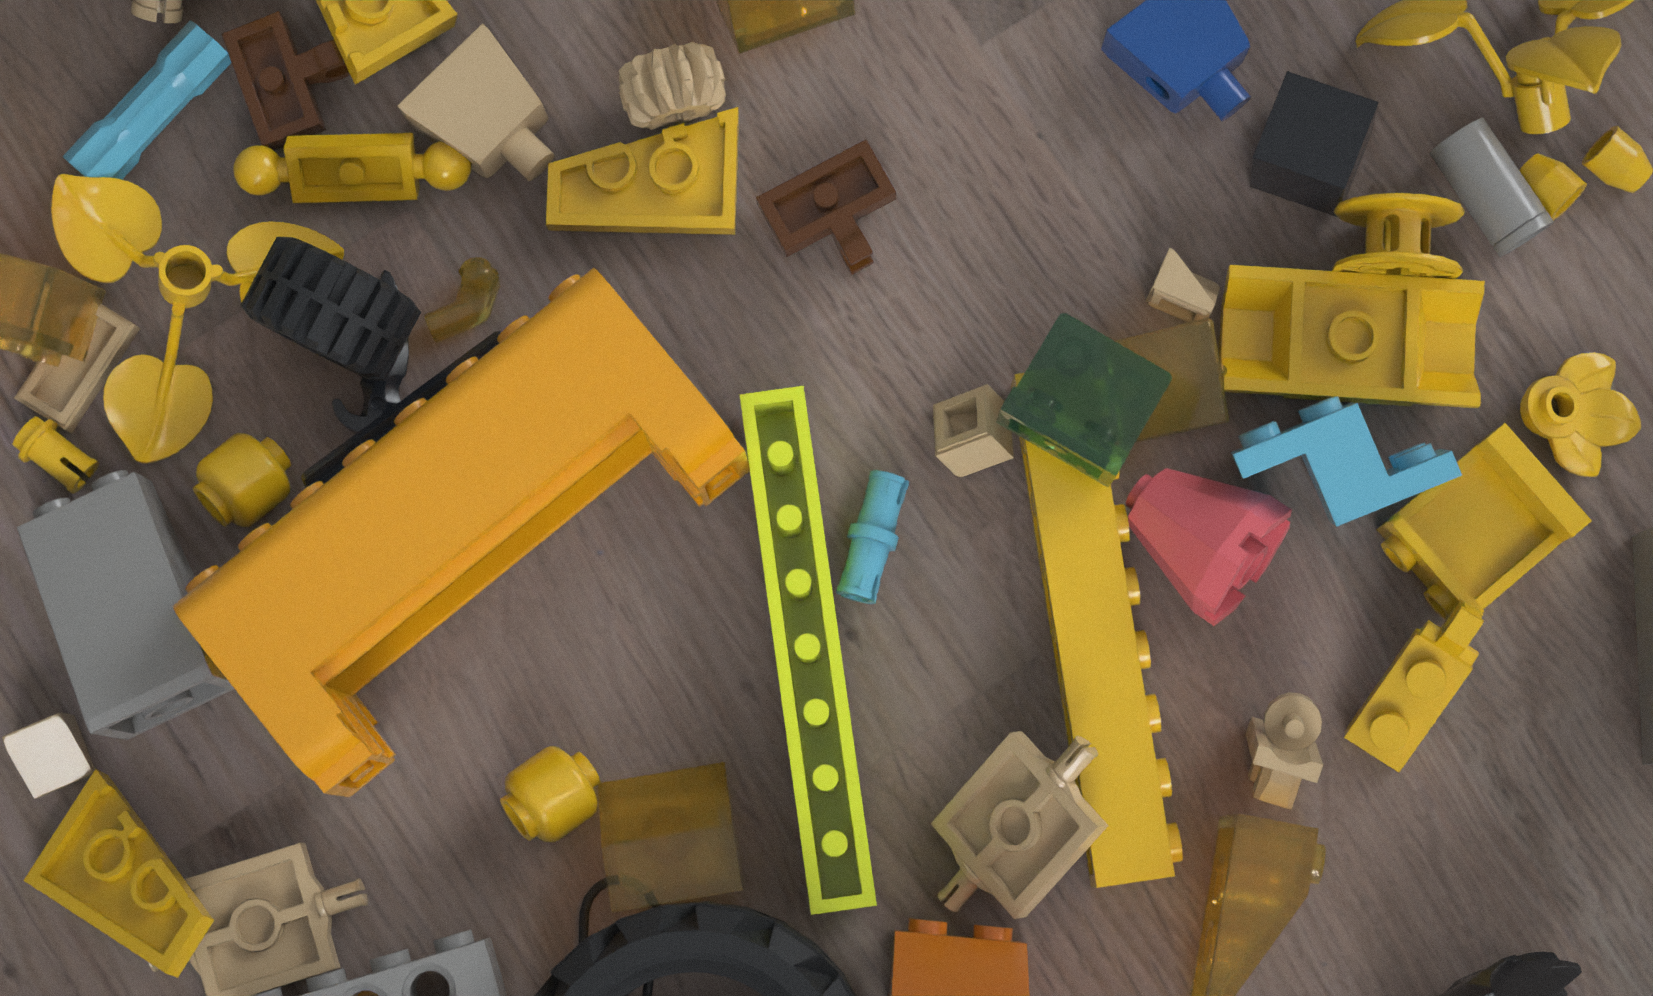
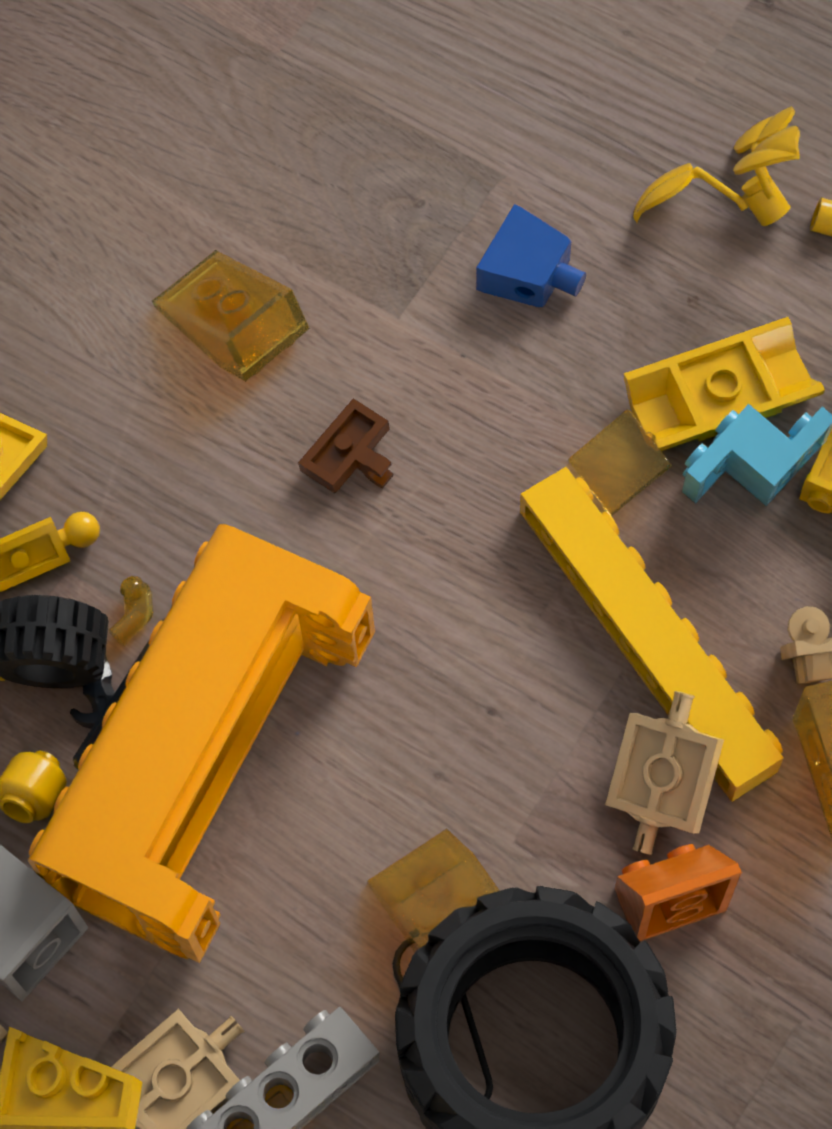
camera: 25 degrees left, 15 degrees down
(481, 109) = (90, 482): tan torso -> none
(550, 794) = (338, 898): yellow head -> none
(652, 185) = (230, 483): yellow wing -> none
(672, 85) = (211, 416): tan gear -> none
(807, 651) = (474, 730): neon yellow brick -> none
(872, 537) = (476, 640): medium azure pin -> none
(968, 432) = (509, 547): tan slope -> none
(1084, 399) = (574, 486): clear green bracket -> none
(1181, 291) = (599, 404): tan slope -> none
(1206, 536) = (694, 541): coral cone -> none
(1312, 143) = (639, 281): black head -> none
(1399, 234) = (719, 307): yellow piece -> none
(1491, 187) = (763, 264): light grey pin -> none
(1552, 183) = (798, 249): yellow hose -> none

